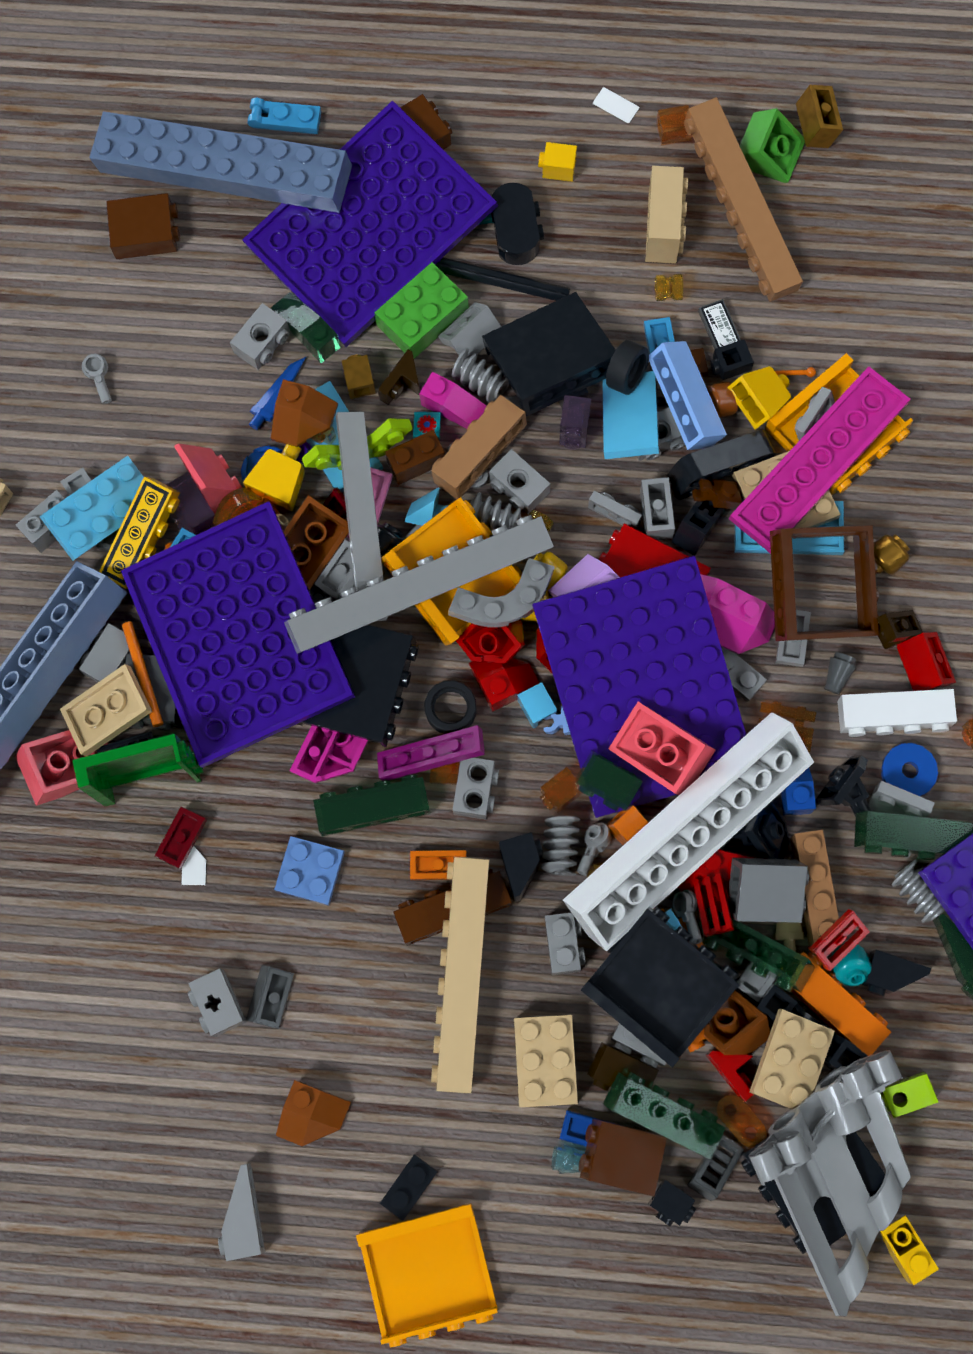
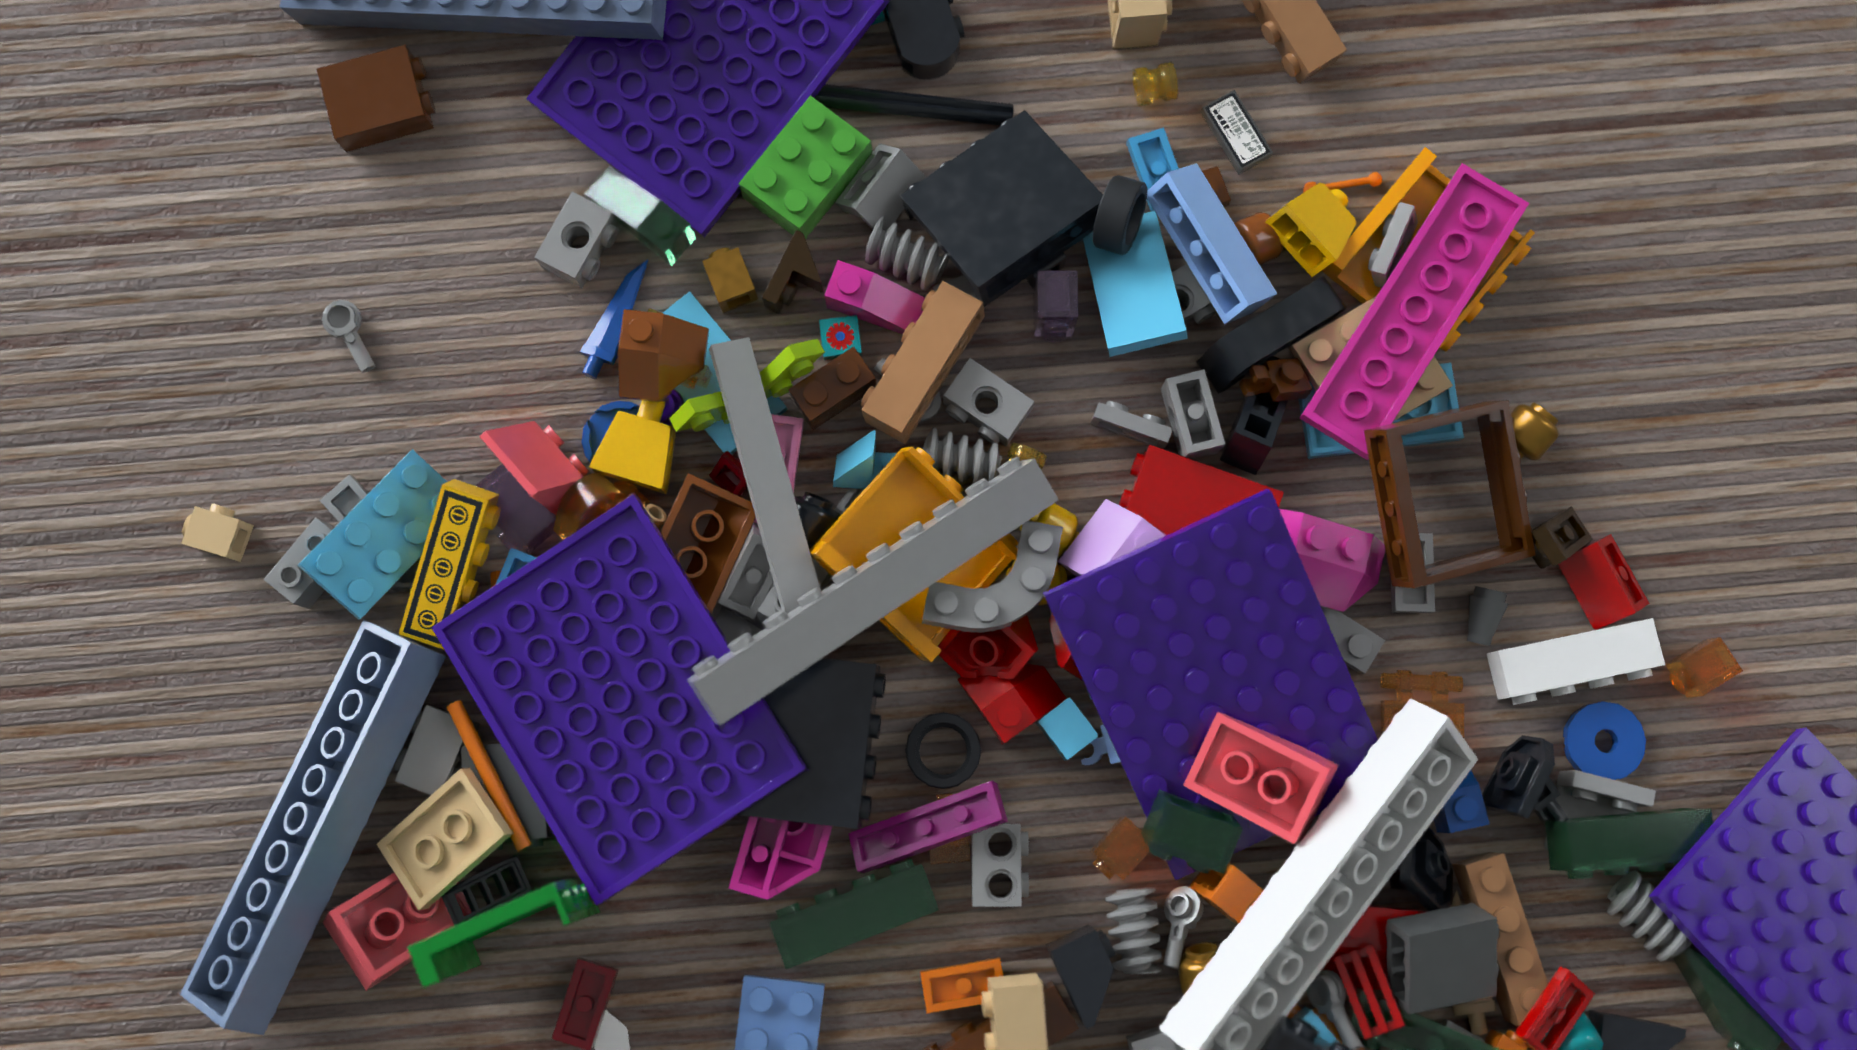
camera: 15 degrees left, 5 degrees up
(737, 354) = (1270, 170): black brick -> none

